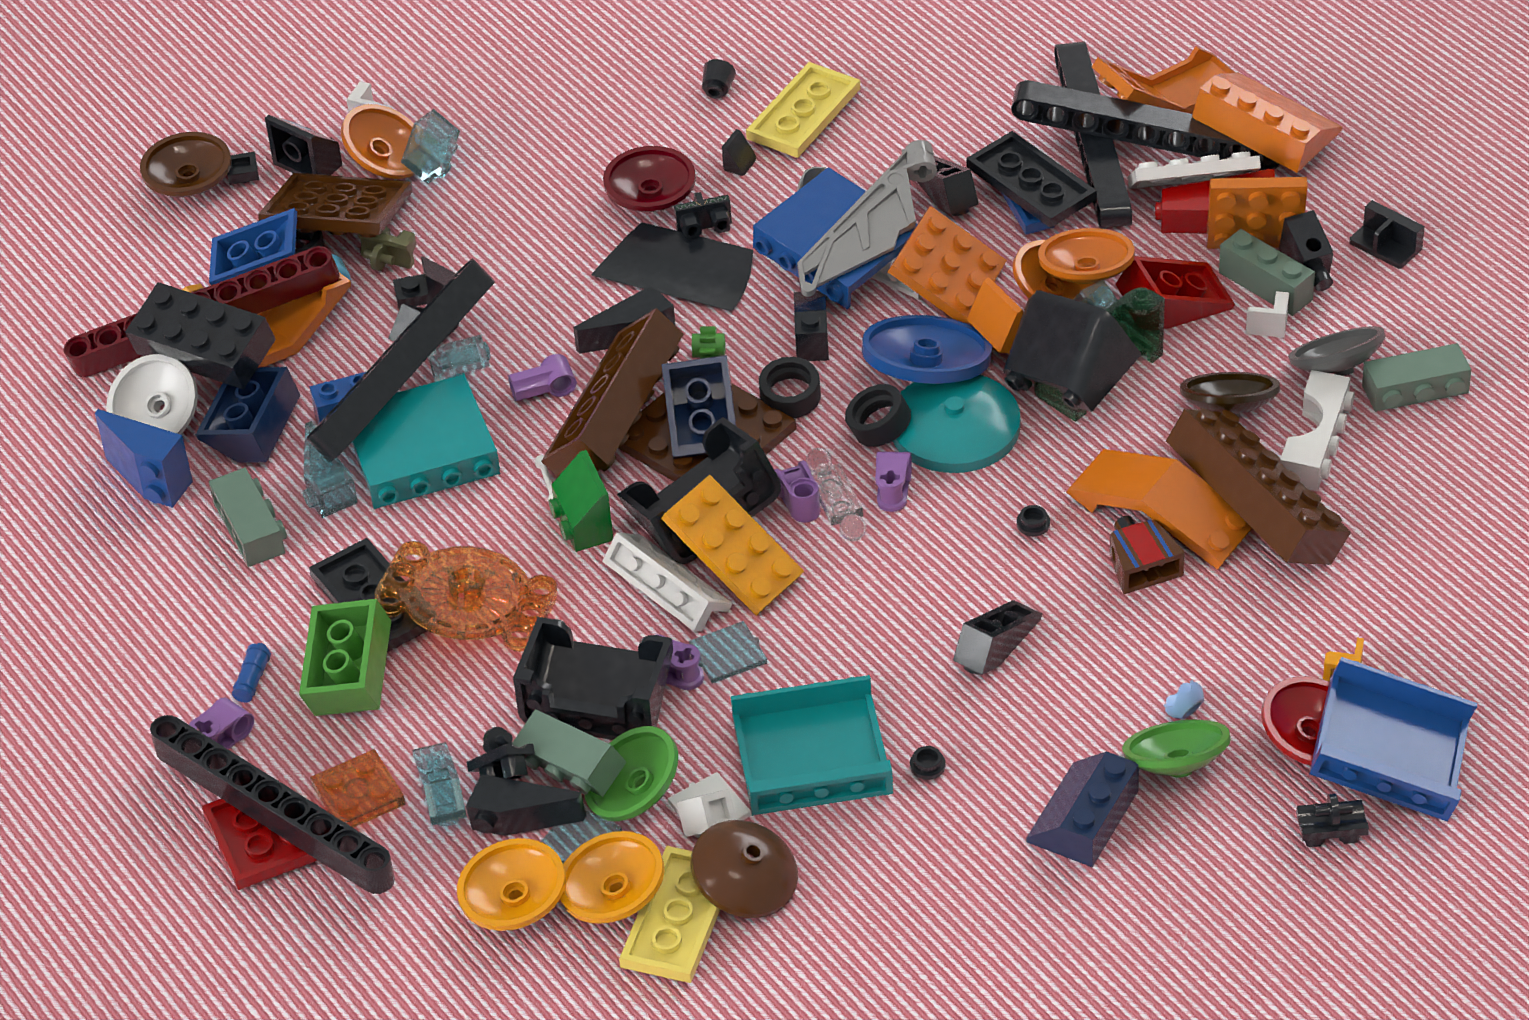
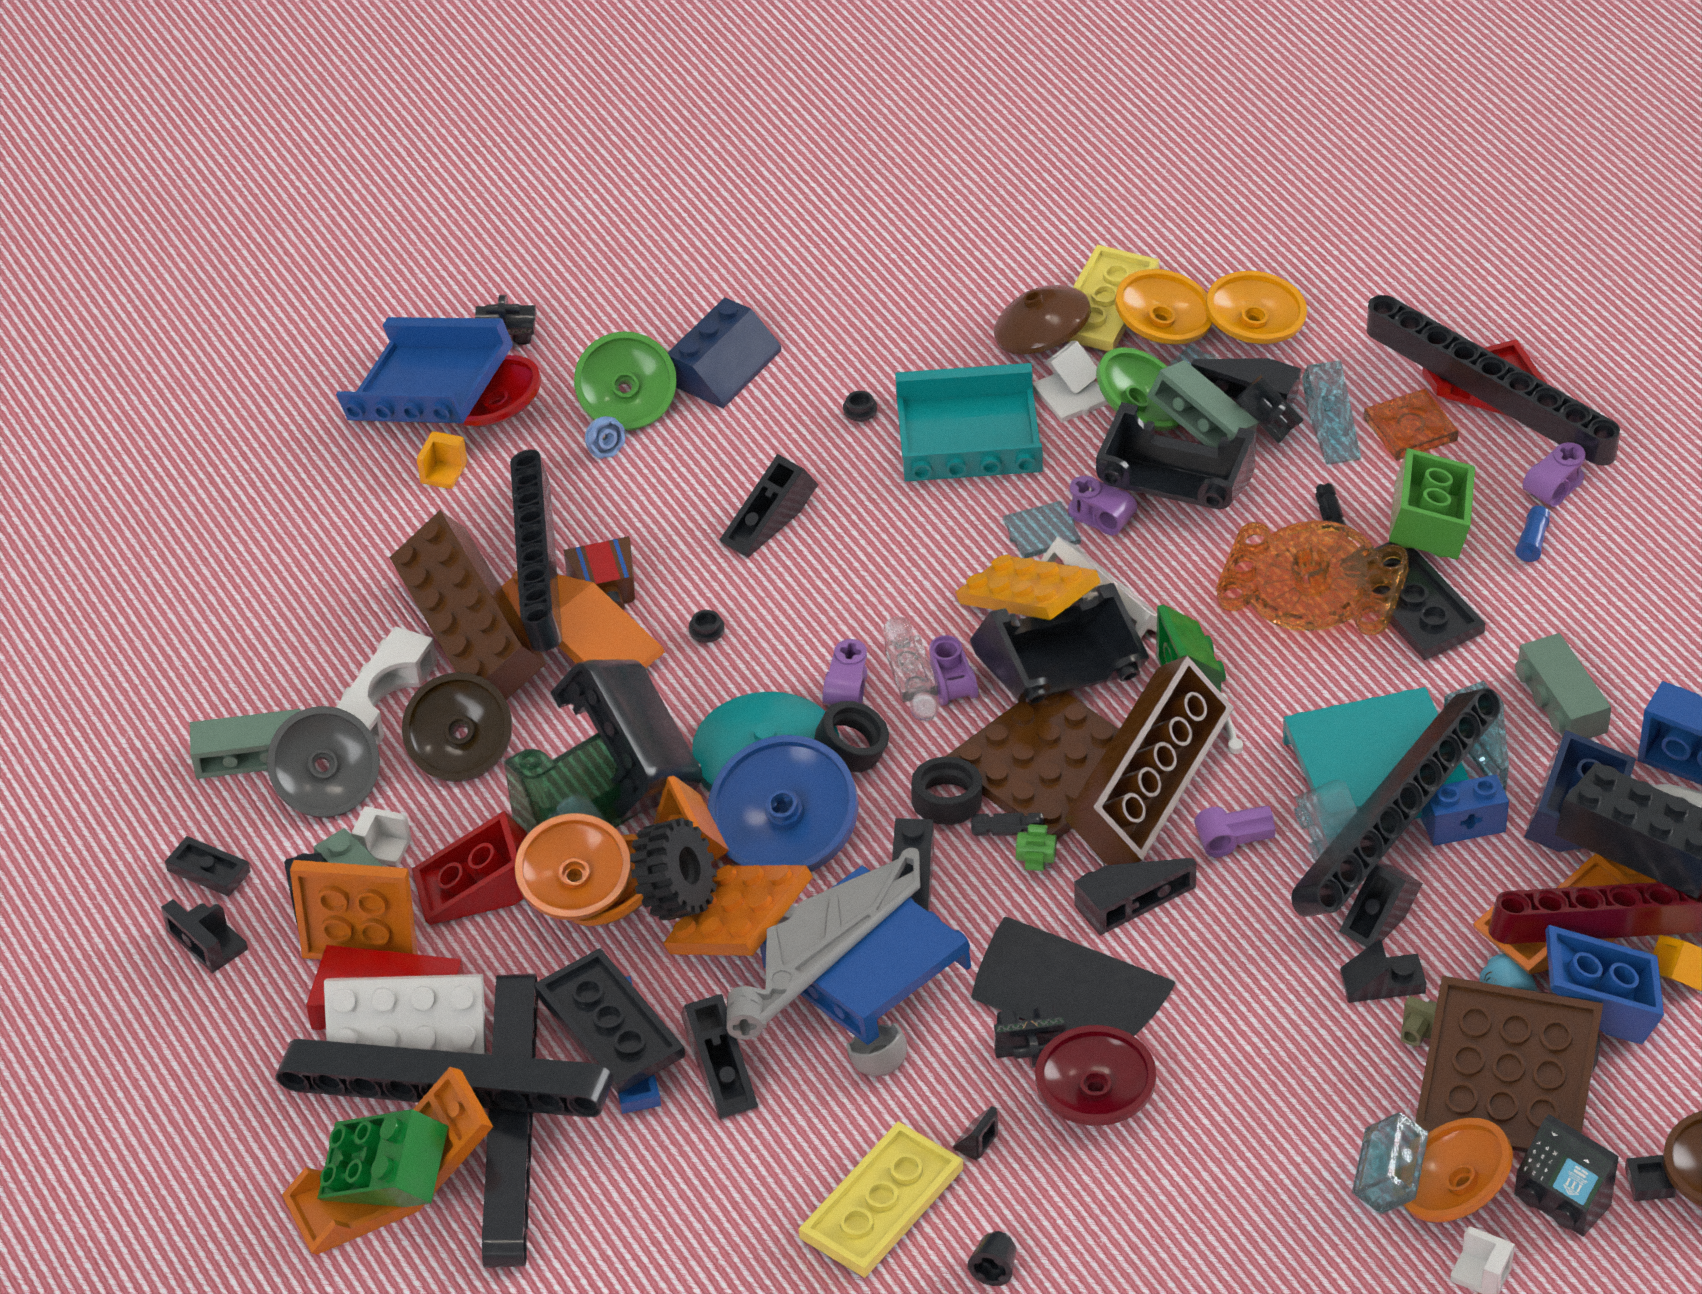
camera: 175 degrees left, 0 degrees up
(444, 684) = (1329, 503): none -> black axle
(696, 398) = (1050, 745): dark blue slope -> none
(742, 367) = (1004, 823): none -> black axle
(1001, 249) = (673, 869): none -> black tyre
(1166, 65) = (383, 1160): none -> green slope
(1209, 537) = (535, 551): none -> black beam
(1263, 120) = (286, 1067): orange slope -> none
(1407, 283) = (207, 866): none -> black plate

